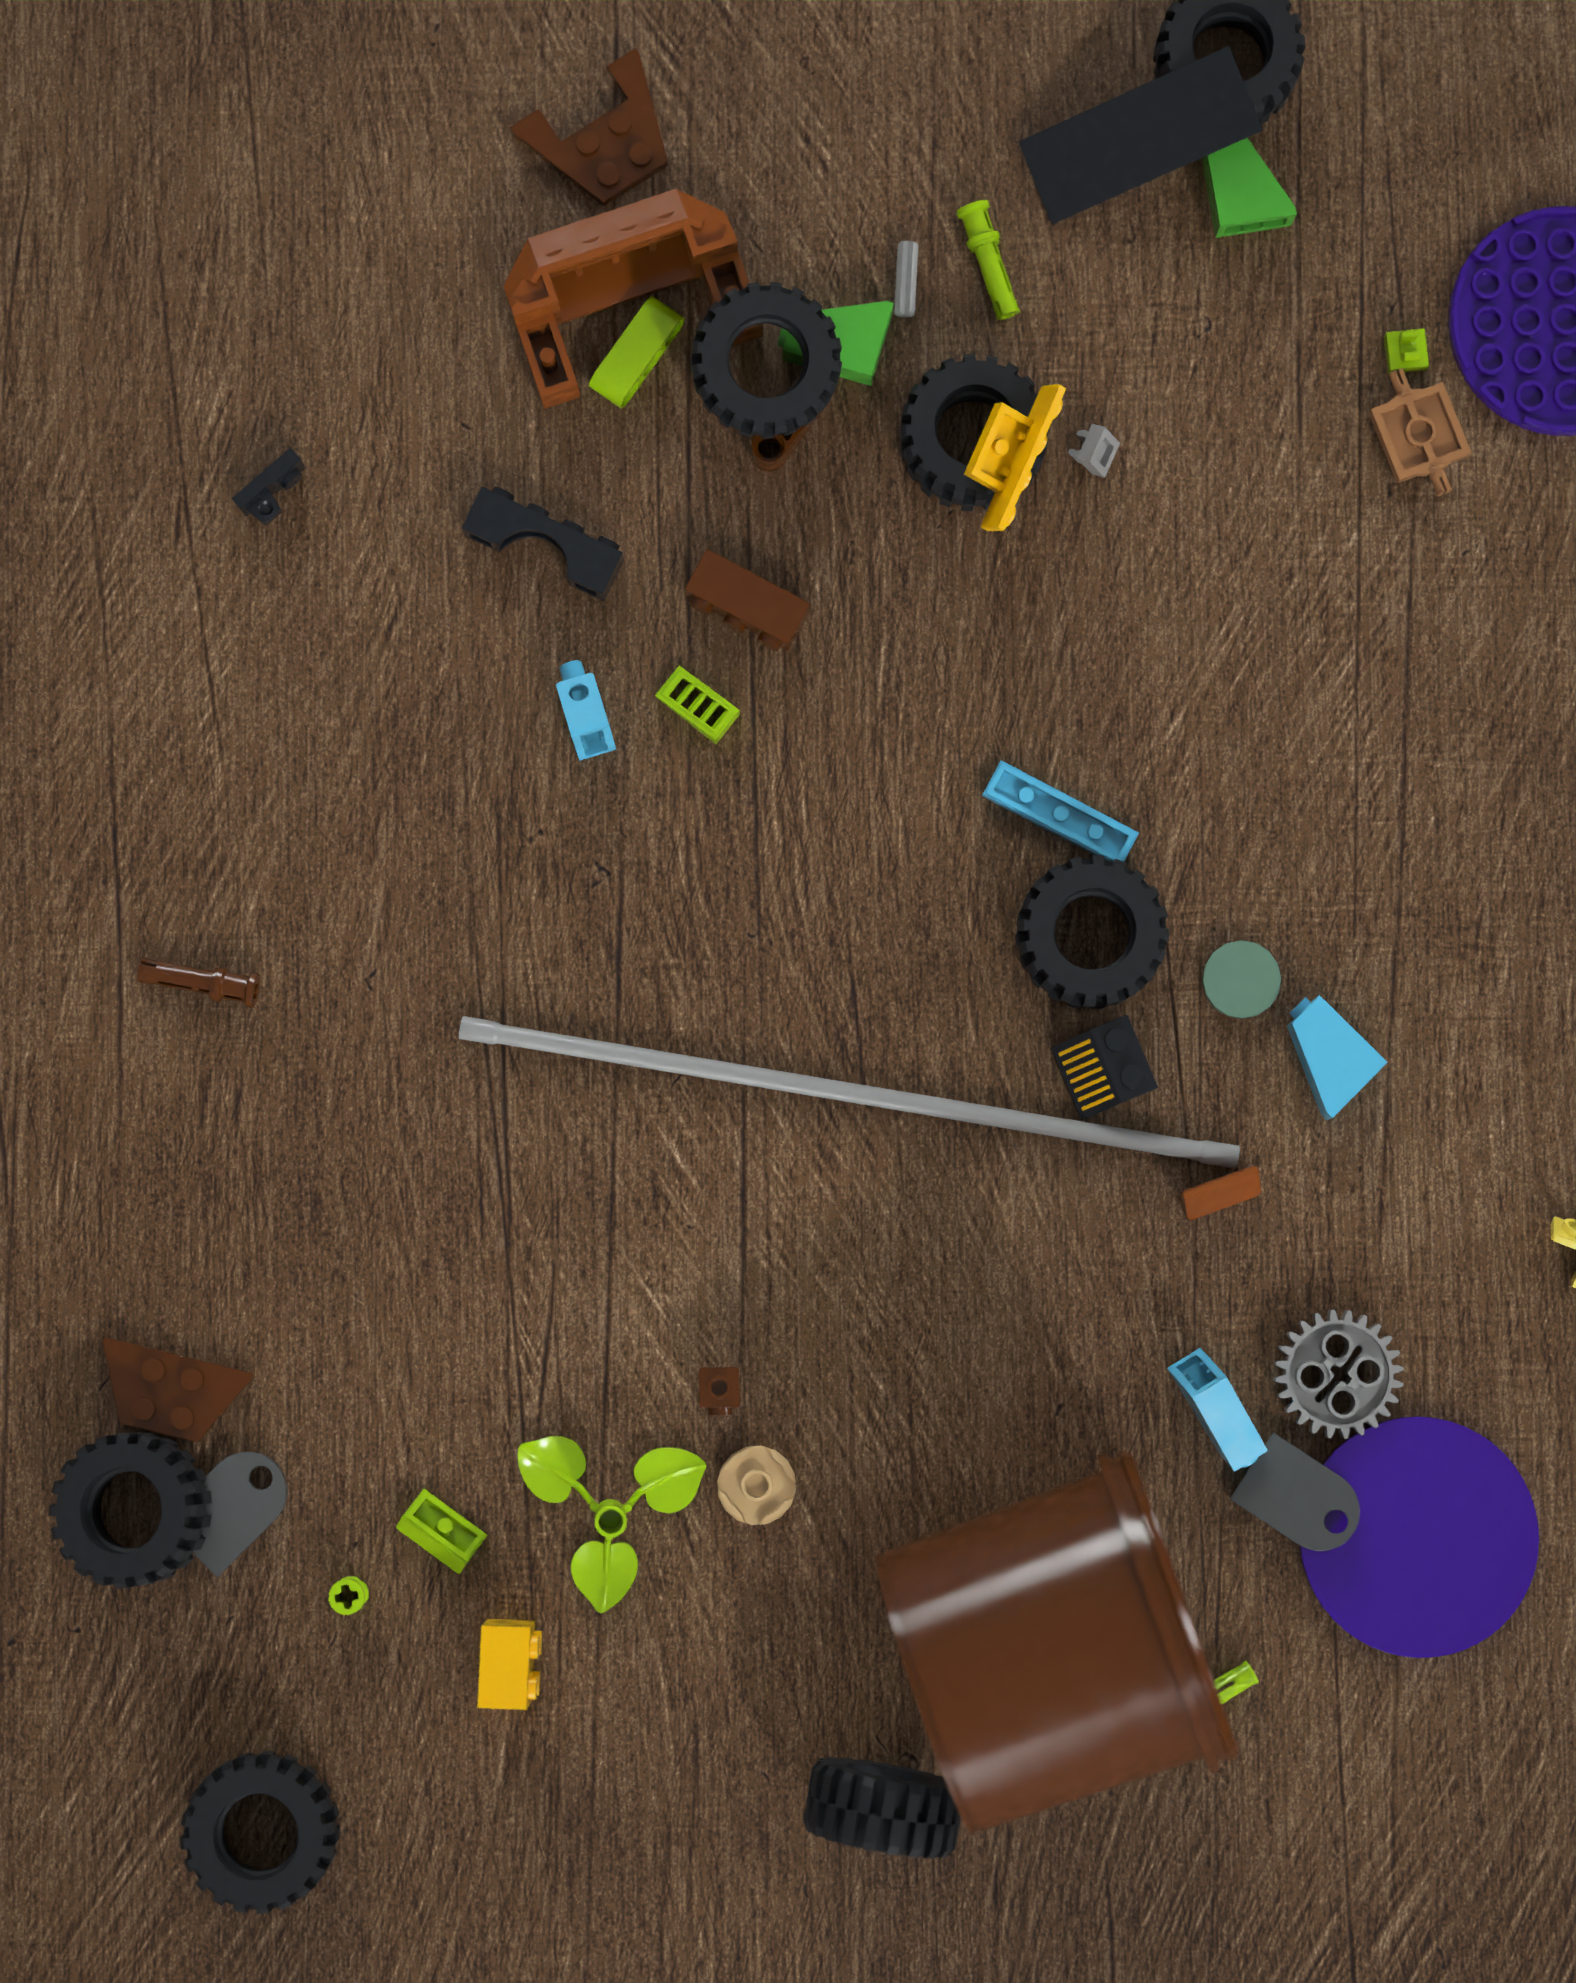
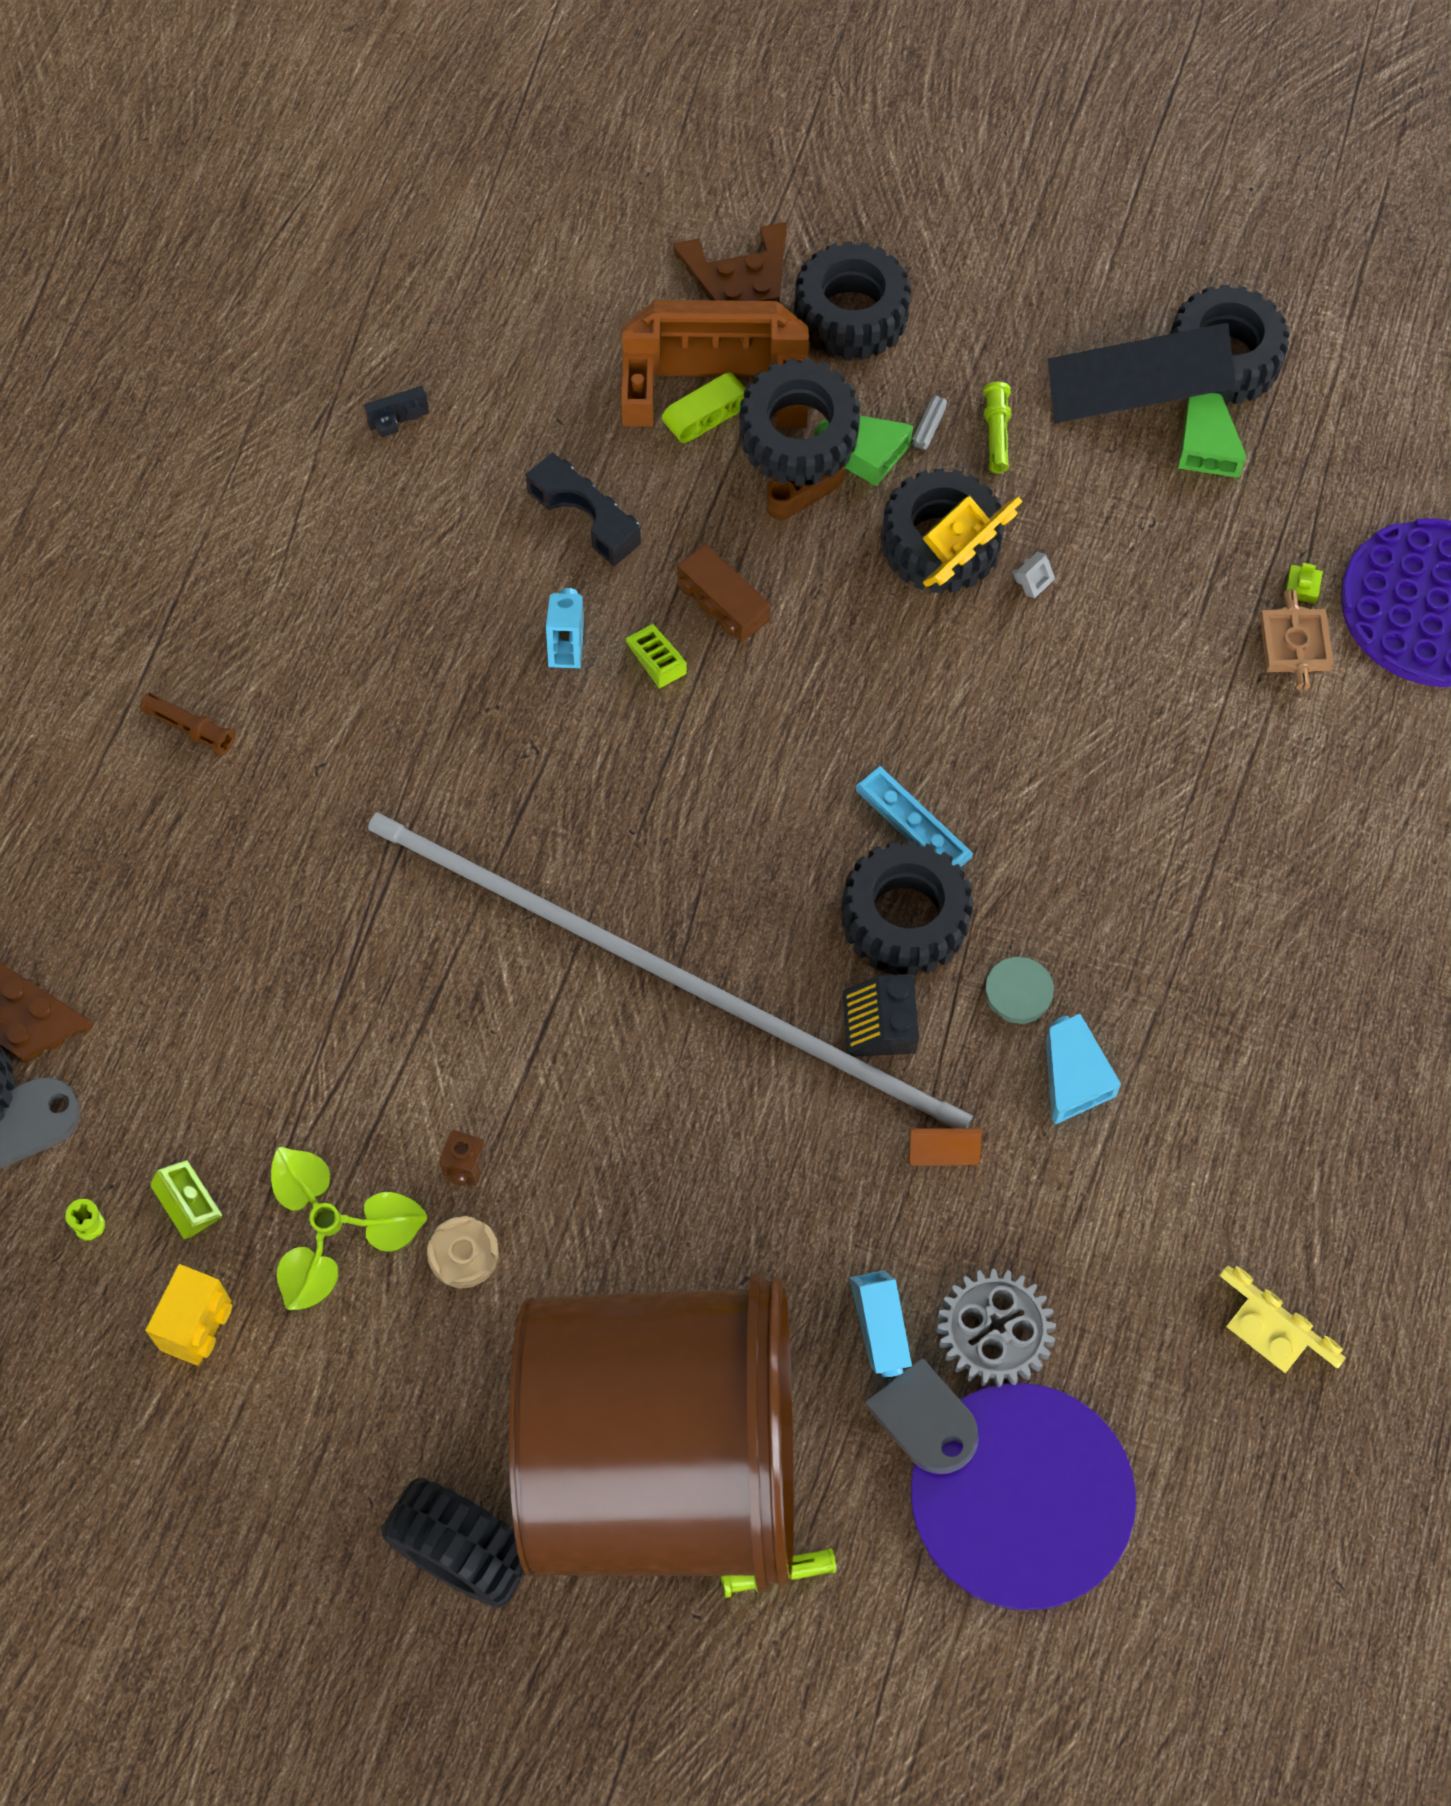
camera: 20 degrees right, 20 degrees down
(756, 96) = (852, 270): none -> black tyre

